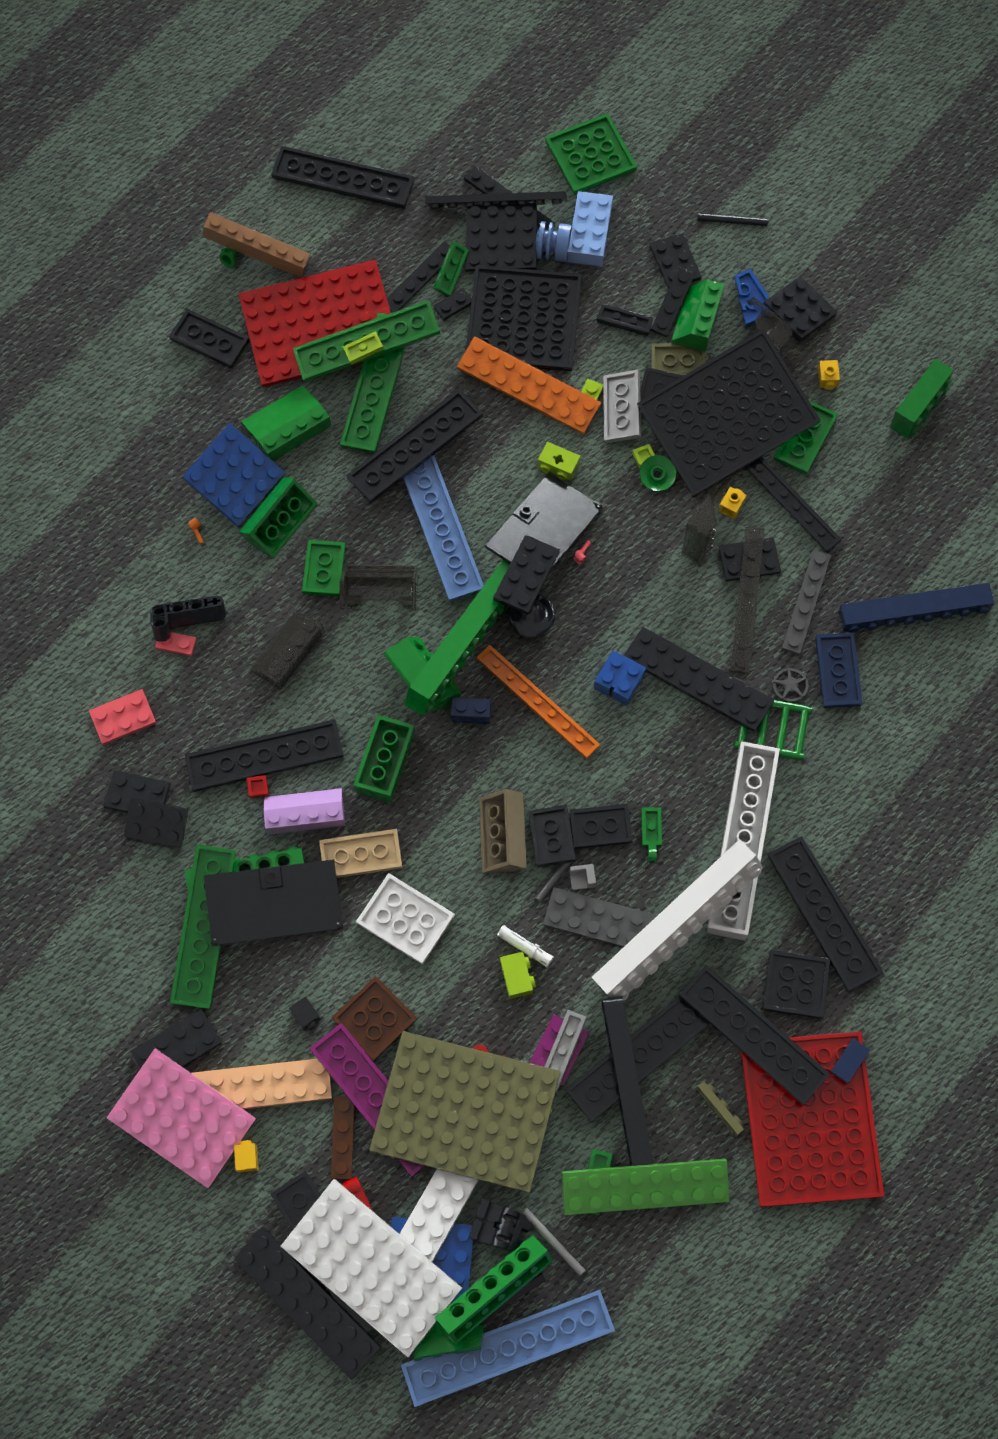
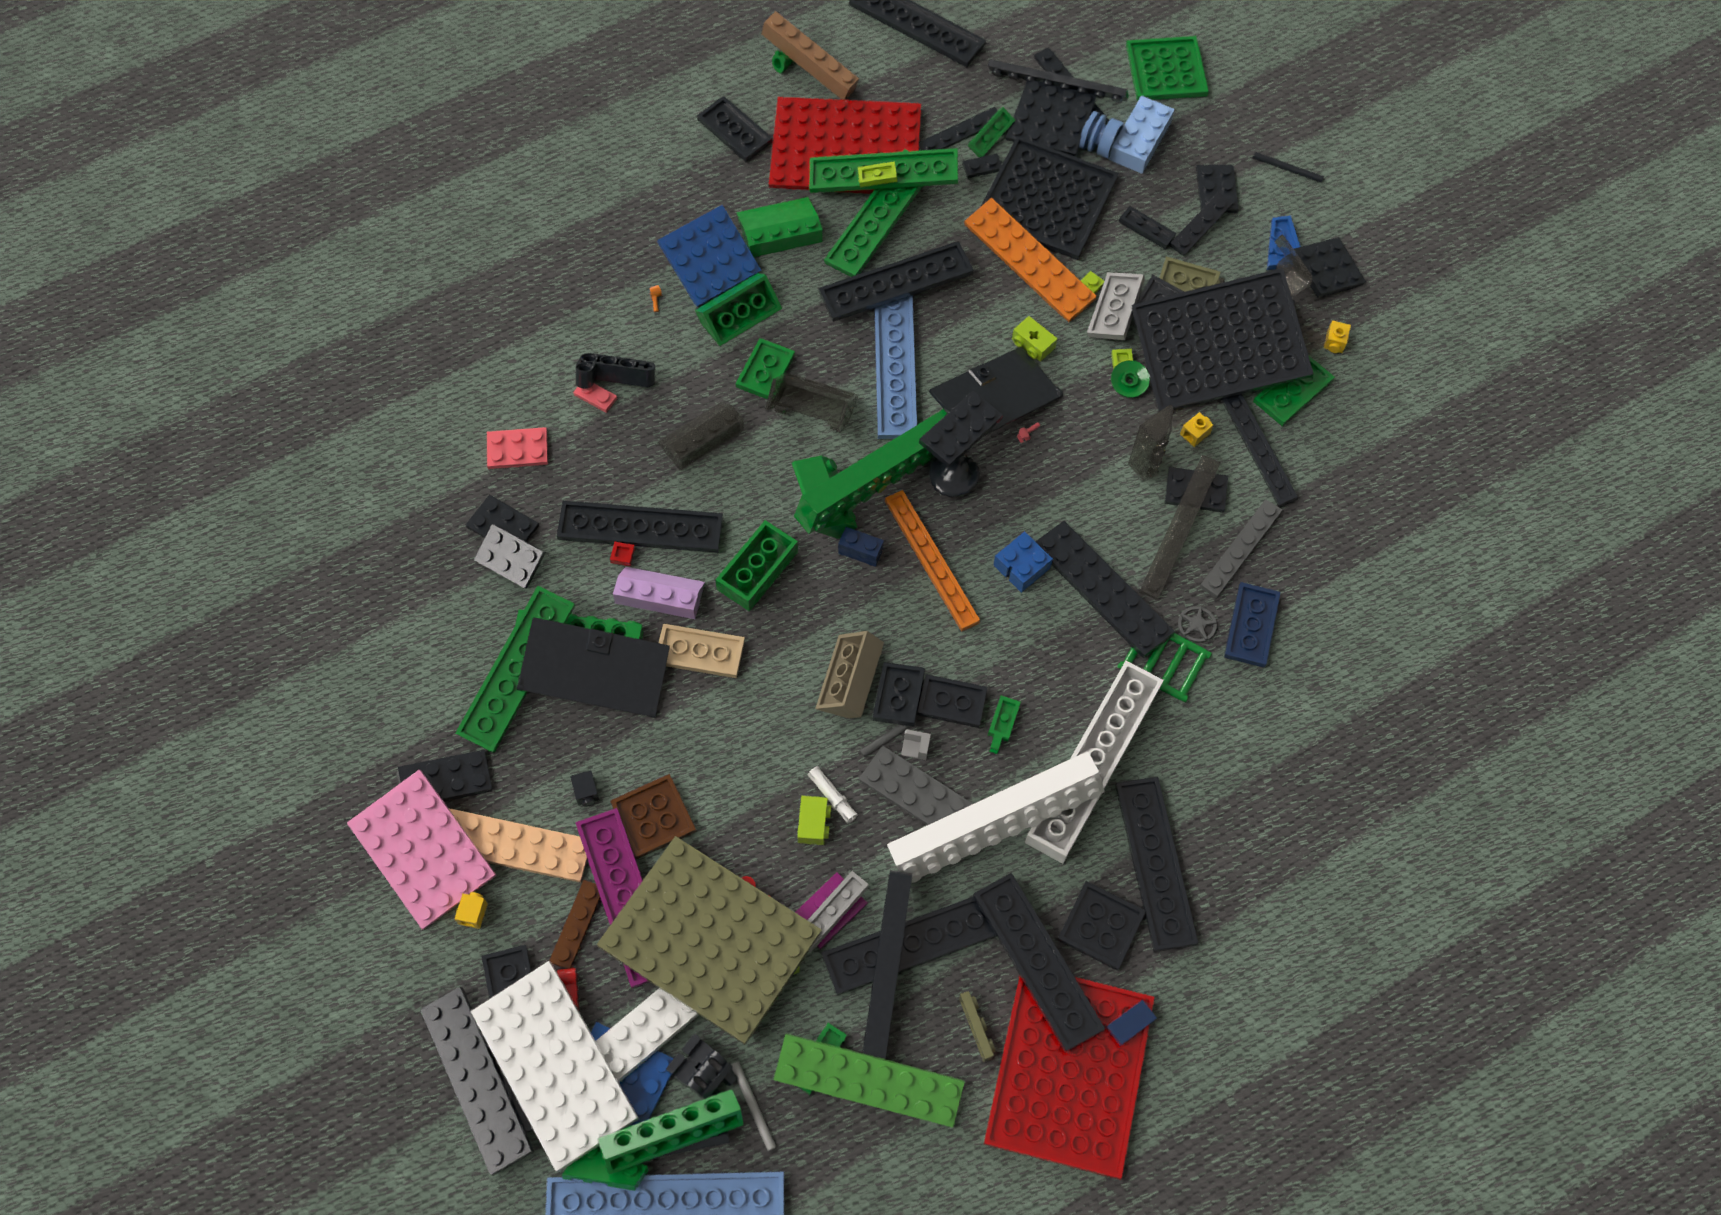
camera: 15 degrees right, 5 degrees down
(405, 918) = (721, 728): white plate -> none
(698, 315) = (1223, 243): green slope -> none
(915, 607) = (1355, 587): dark blue brick -> none
(922, 399) = (1426, 386): green brick -> none

